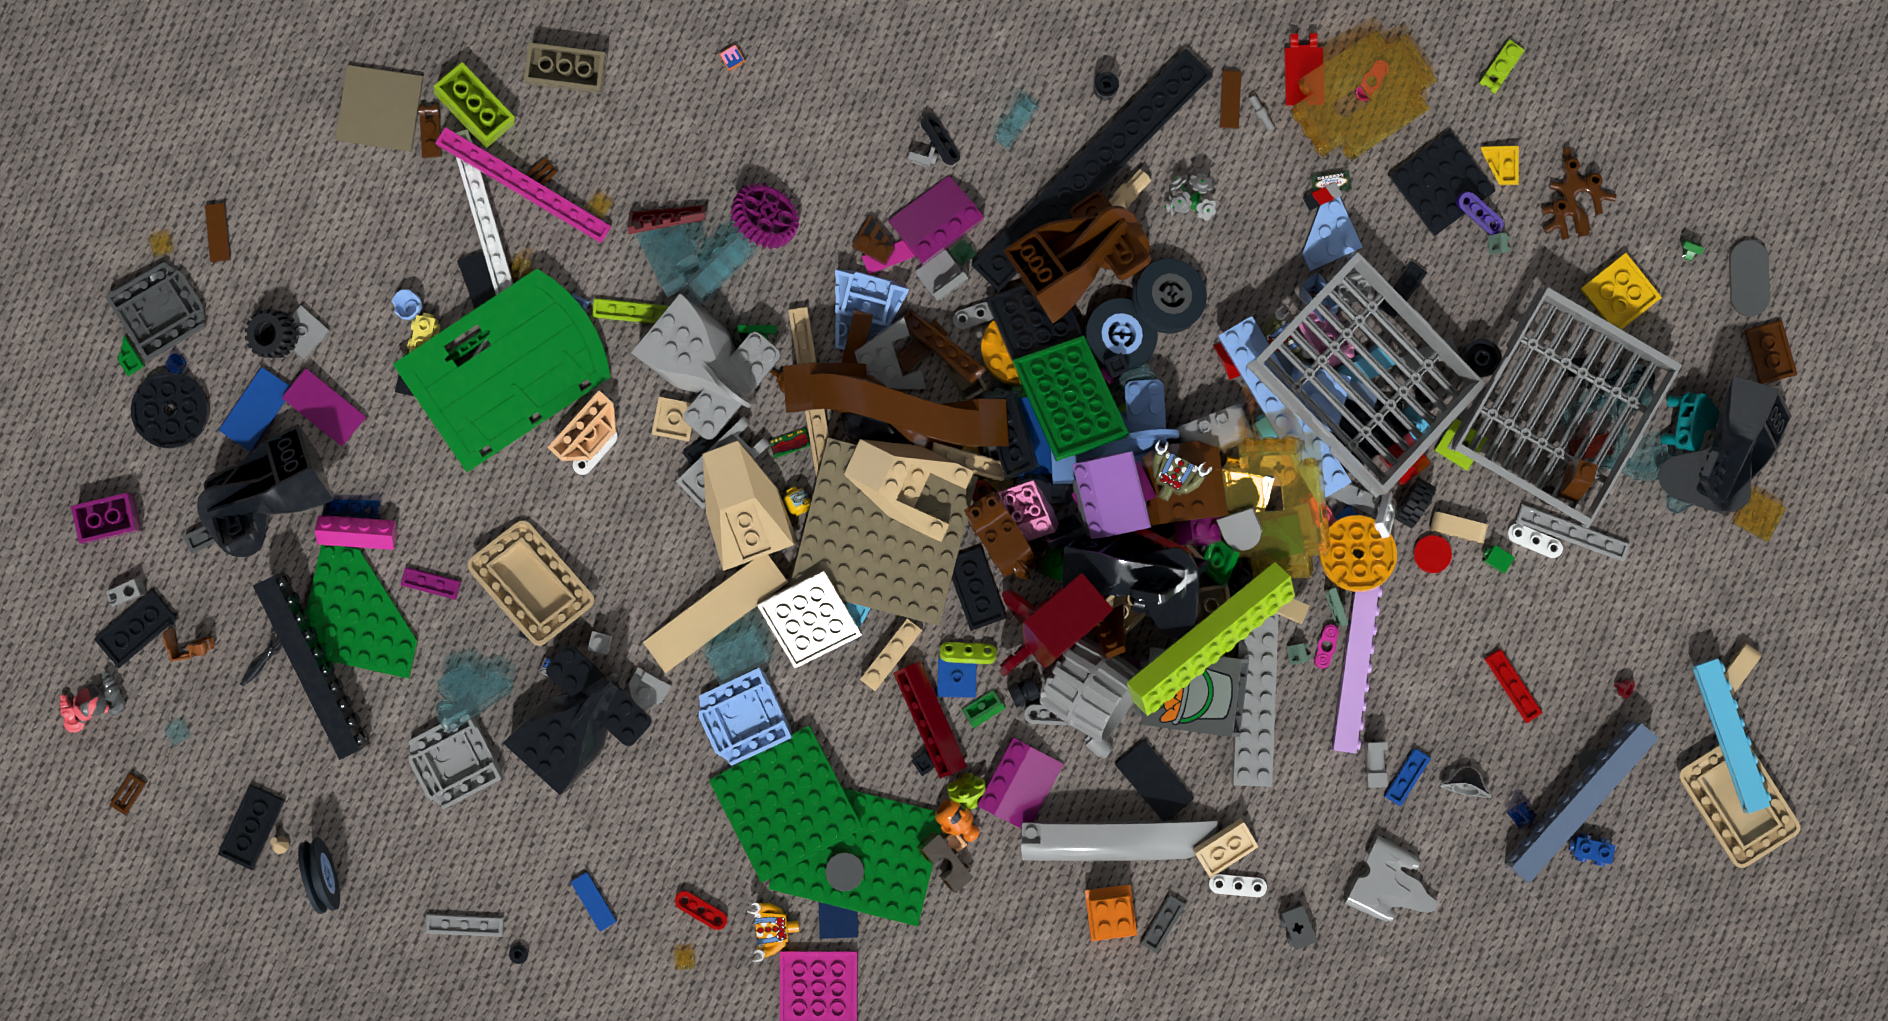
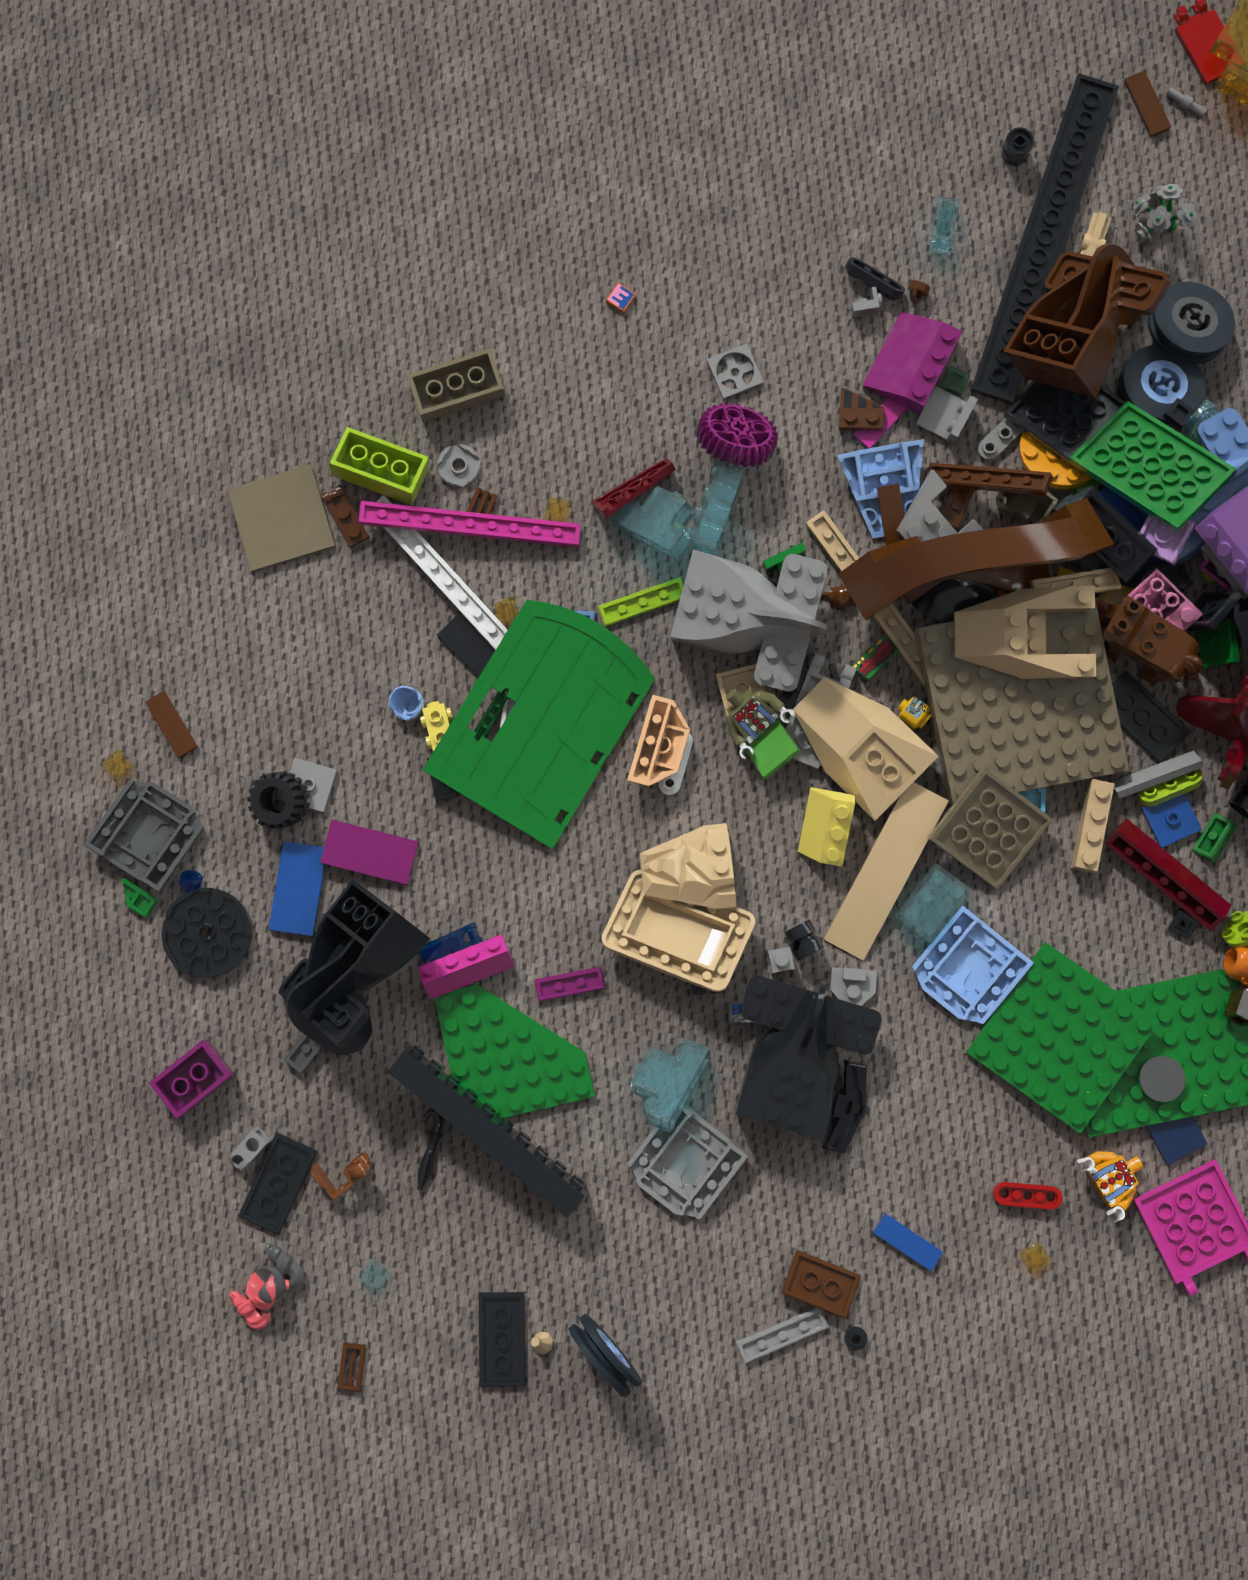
camera: 20 degrees left, 5 degrees down
(511, 901) = (820, 1284): none -> reddish brown tile
(550, 133) = (459, 478): none -> light grey tile
(565, 540) = (692, 869): none -> tan wedge
(597, 779) = (848, 1107): none -> black plate
(625, 635) = (804, 940): none -> black wheel
(669, 443) = (752, 715): none -> torso
(672, 475) = (772, 749): none -> bright green tile
(685, 557) = (826, 826): none -> light yellow slope
(807, 176) = (738, 380): none -> light grey piece
(961, 638) = (1157, 774): none -> light grey tile
(968, 162) = (918, 290): none -> reddish brown tile
(1048, 467) = (1165, 539): none -> lavender tile

